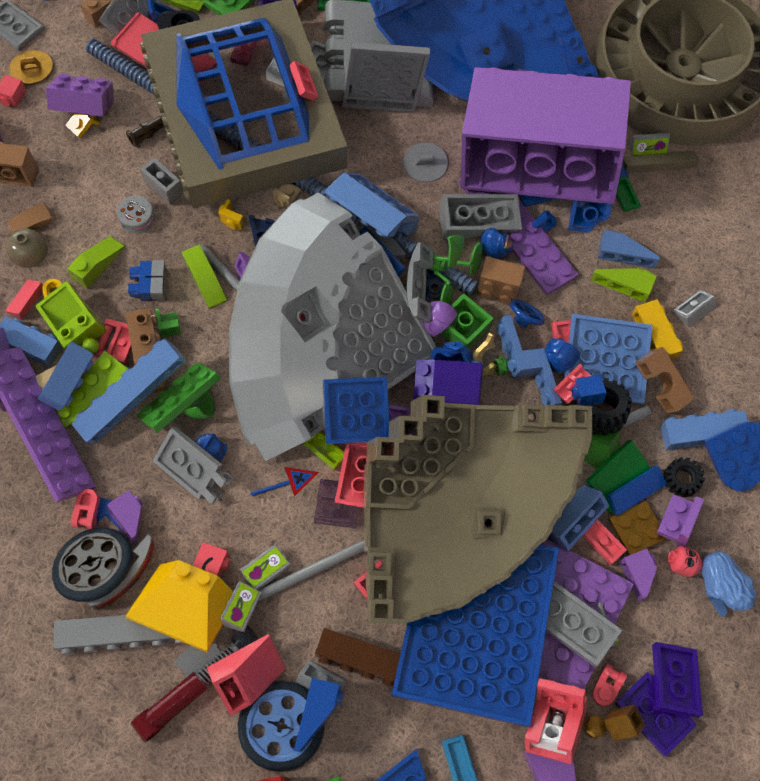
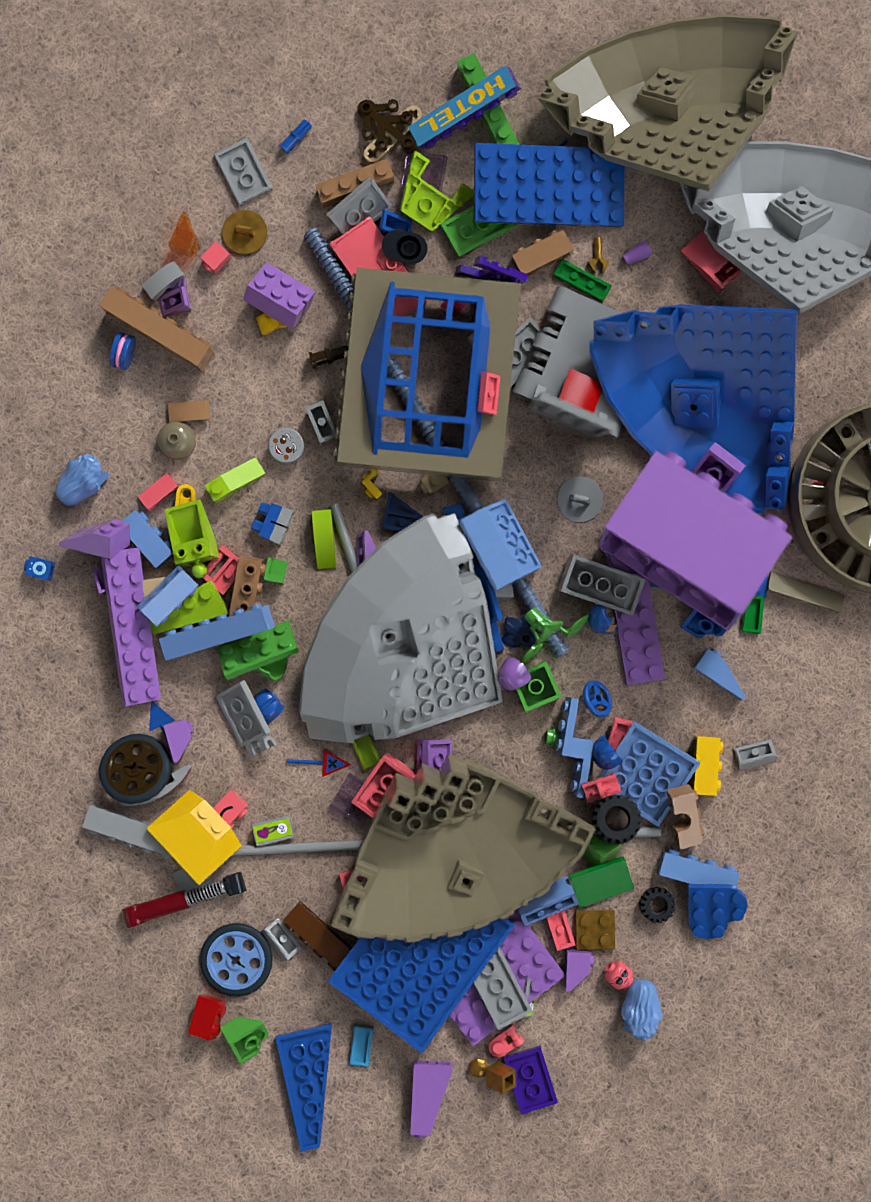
camera: 30 degrees right, 20 degrees up
(89, 502) = (148, 711): coral plate -> none
(240, 607) = (240, 857): slope -> none
(246, 674) = (222, 912): coral slope -> none
(319, 707) = (274, 961): blue slope -> none
(355, 409) = (399, 738): blue plate -> none
(416, 282) = (506, 637): light grey slope -> none
(455, 380) = (492, 740): dark purple slope -> none
(457, 352) = (512, 721): blue helmet -> none
(500, 280) = (586, 659): medium nougat brick -> none
(545, 221) = (660, 613): blue plate -> none
(561, 705) = (456, 1043): coral brick -> none
(589, 390) = (604, 807): blue brick -> none
(628, 281) = (709, 708): lime slope -> none
(636, 490) = (610, 899): blue tile -> none
(649, 144) = (804, 572): slope -> none
(677, 680) = (559, 1064): dark purple plate -> none
(680, 519) = (630, 941): medium lavender bracket -> none

